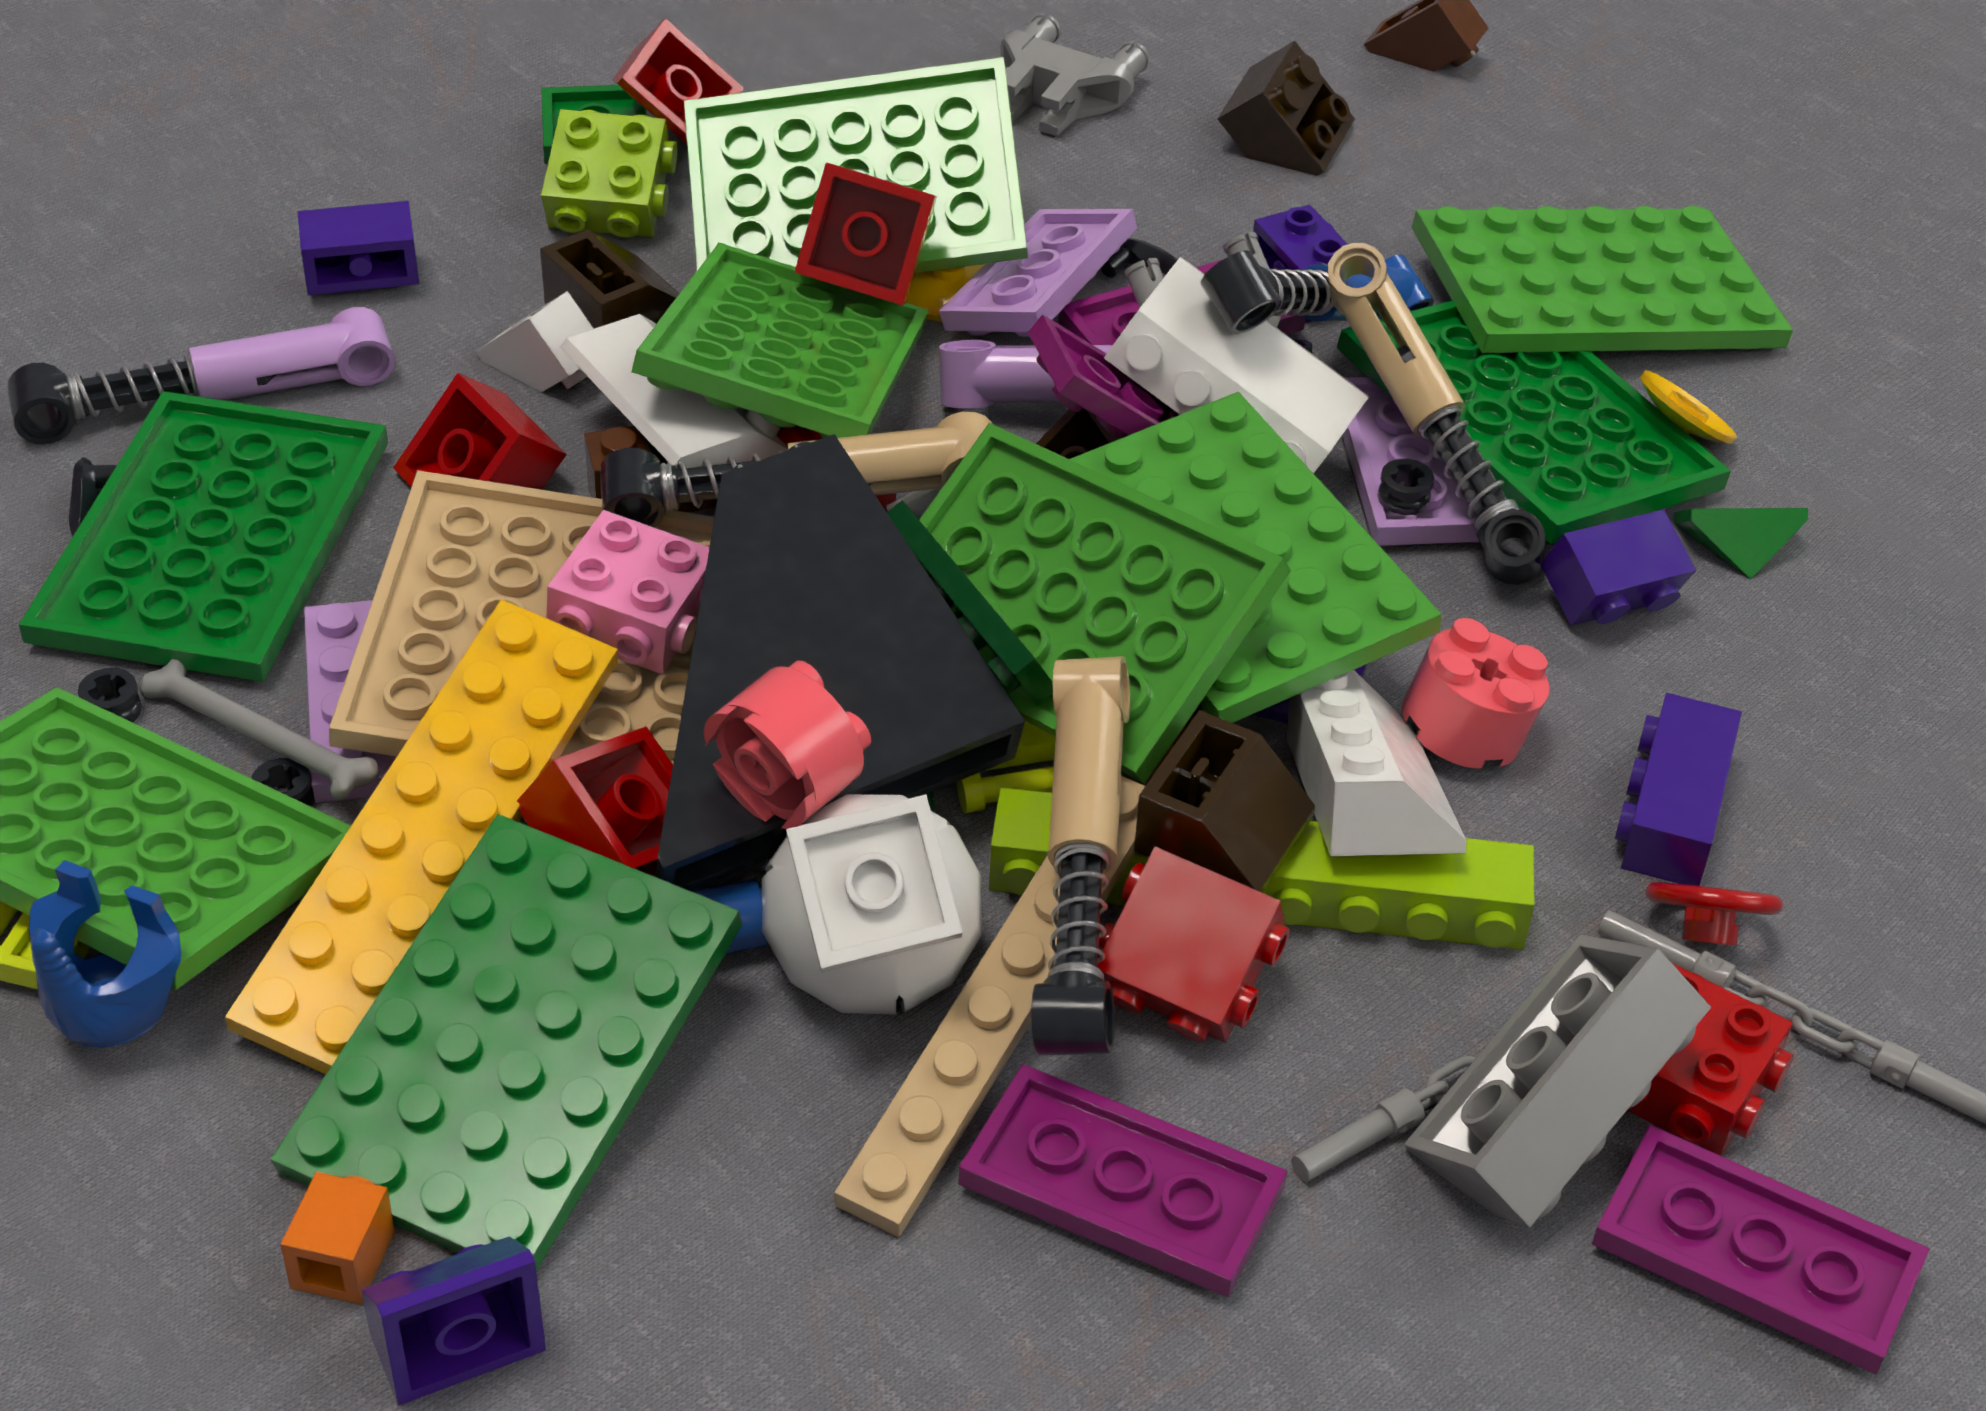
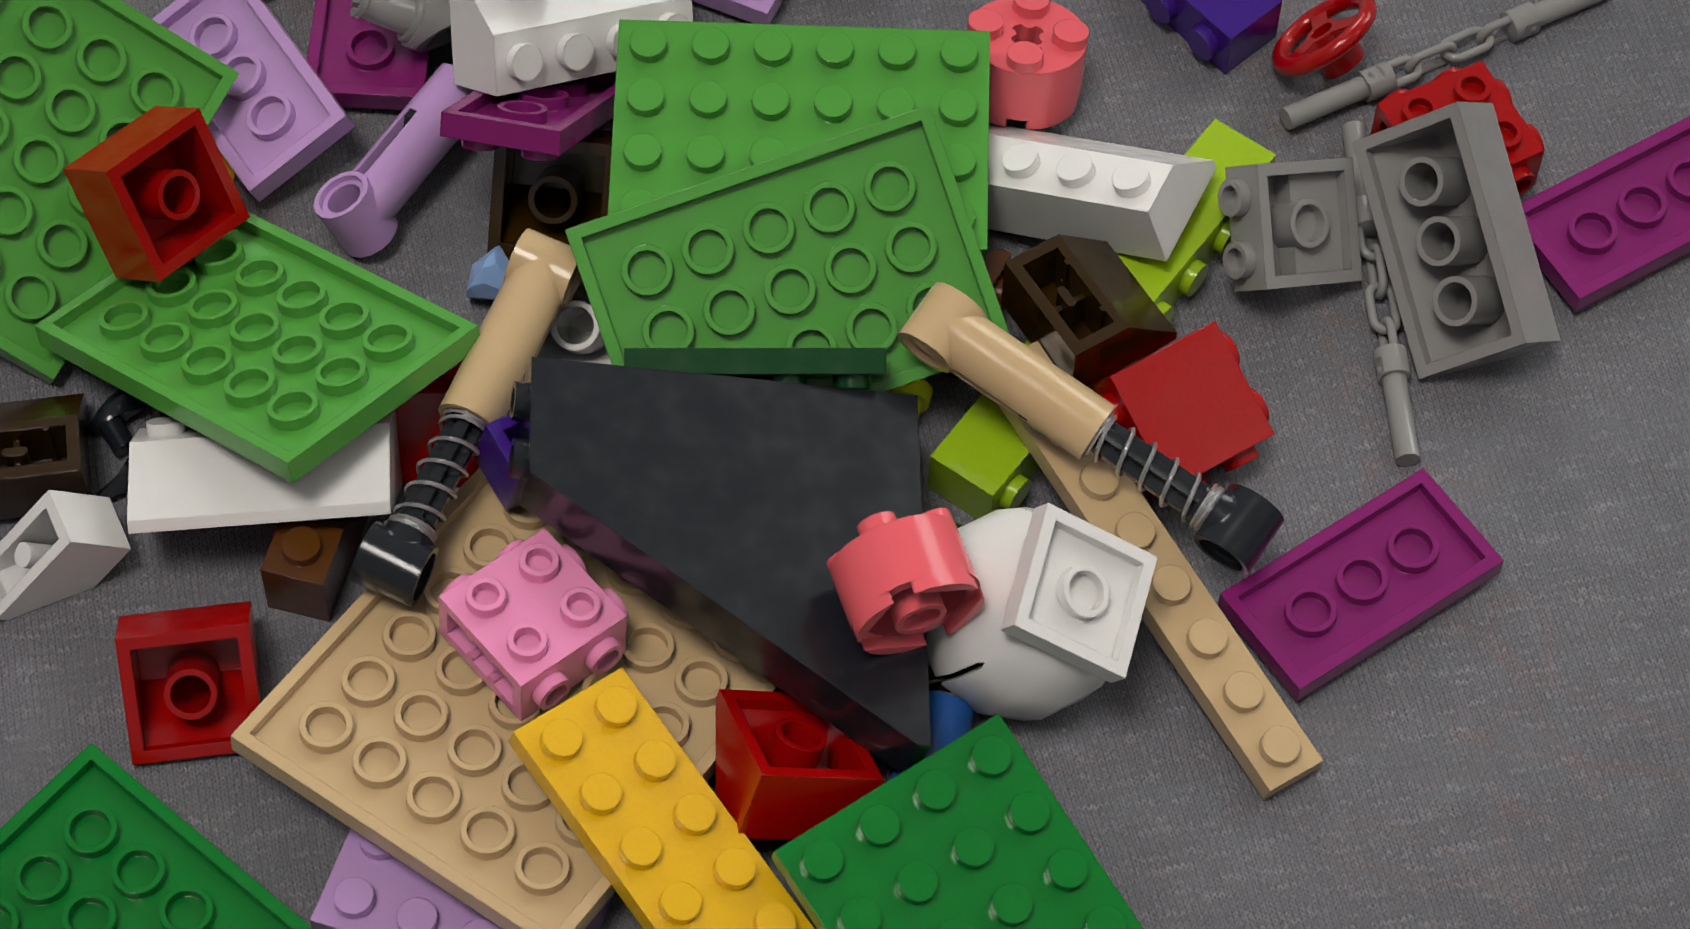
camera: 60 degrees left, 15 degrees up
(1467, 947) = (1291, 224): none -> light grey plate

